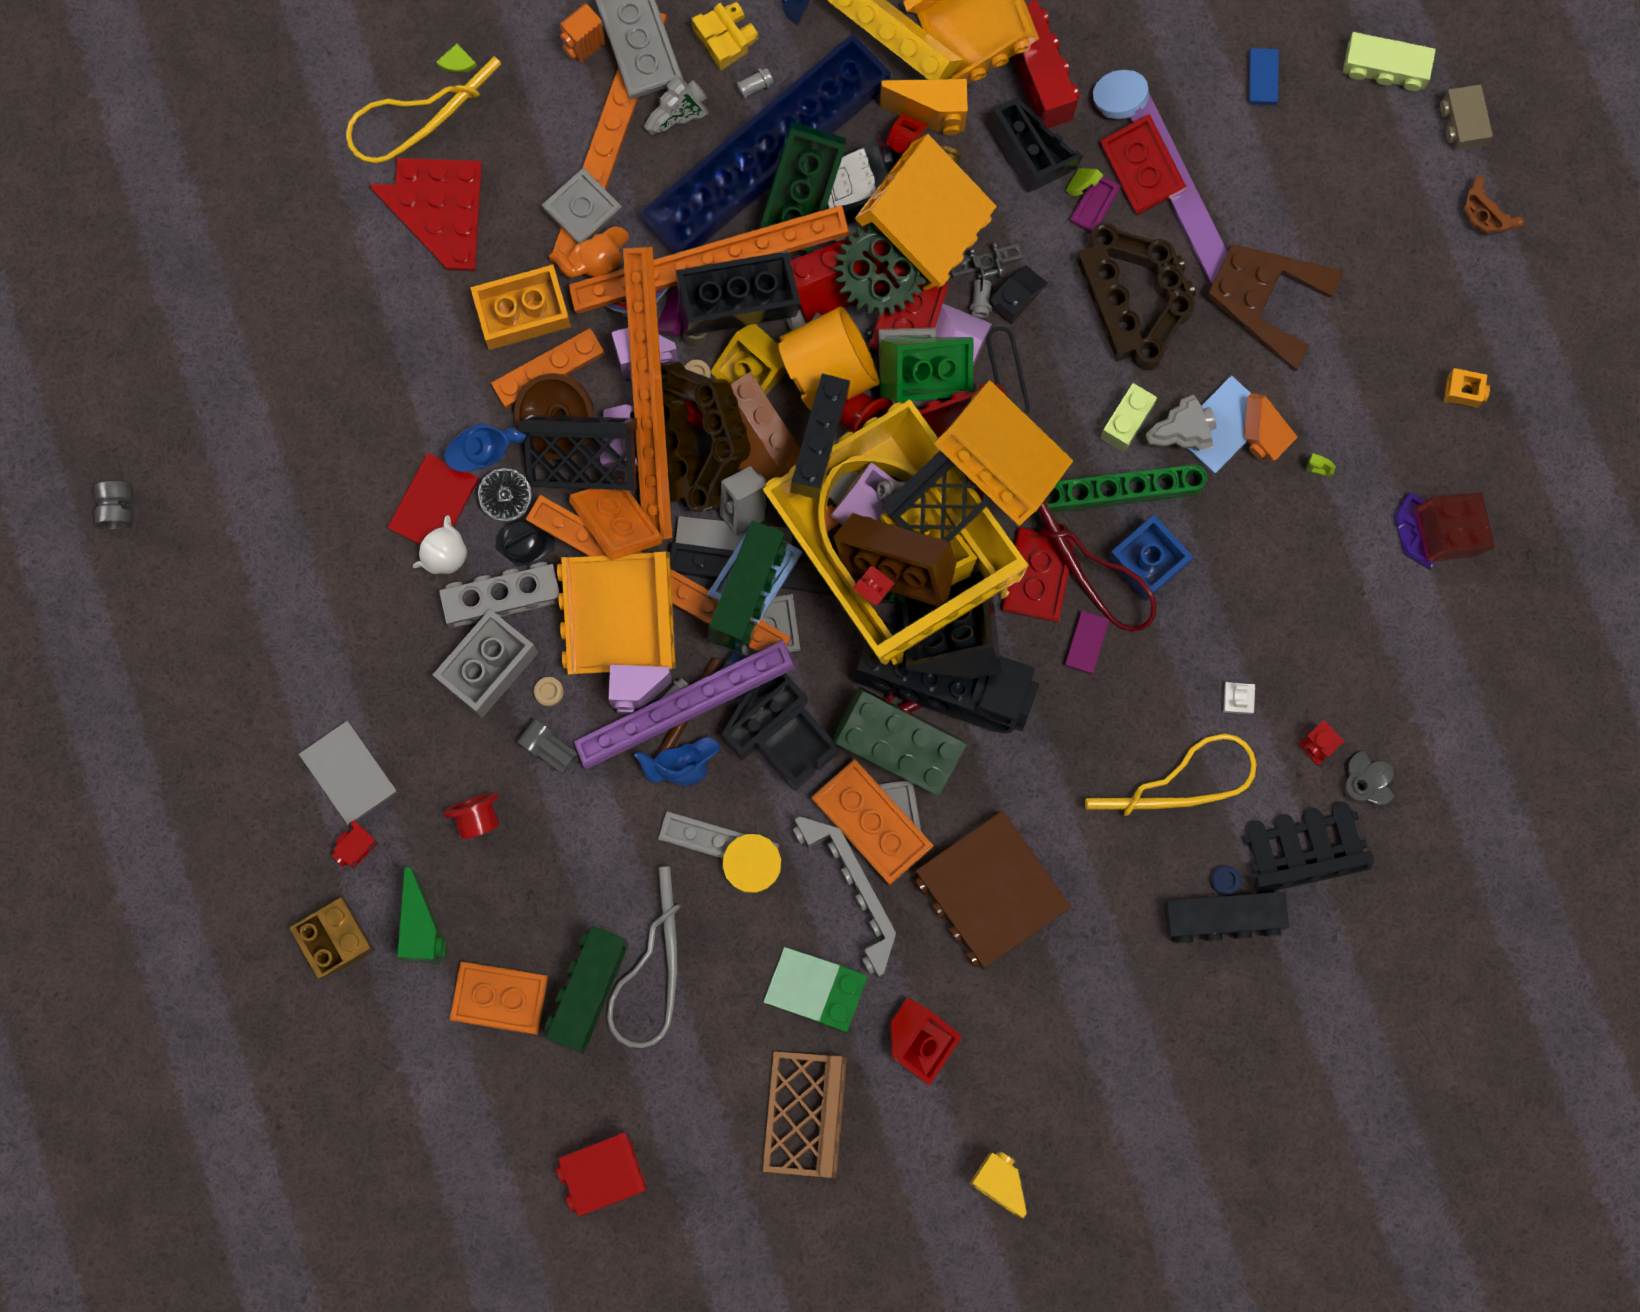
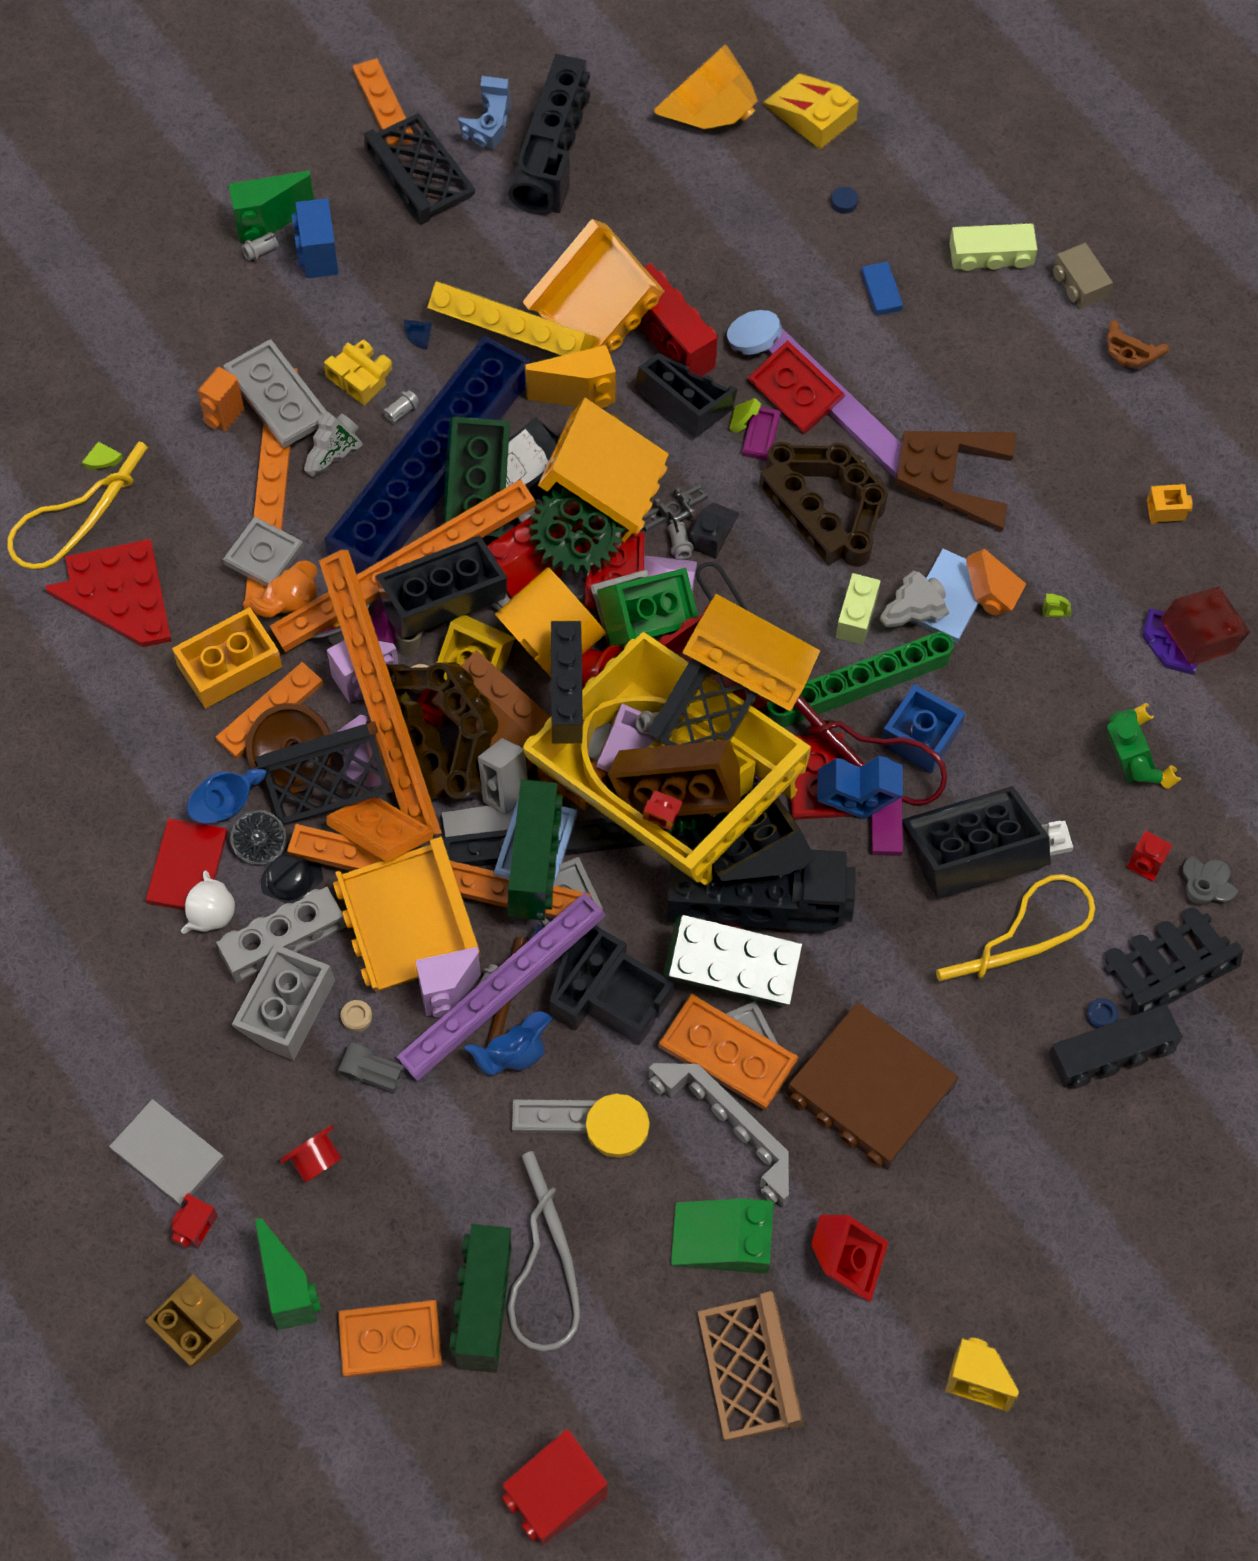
camera: 15 degrees left, 15 degrees down
(901, 137) = (559, 411): red brick -> none
(1070, 602) = (860, 789): none -> blue brick
(1165, 682) = (977, 842): none -> black slope
(1340, 631) = (1132, 748): none -> green torso

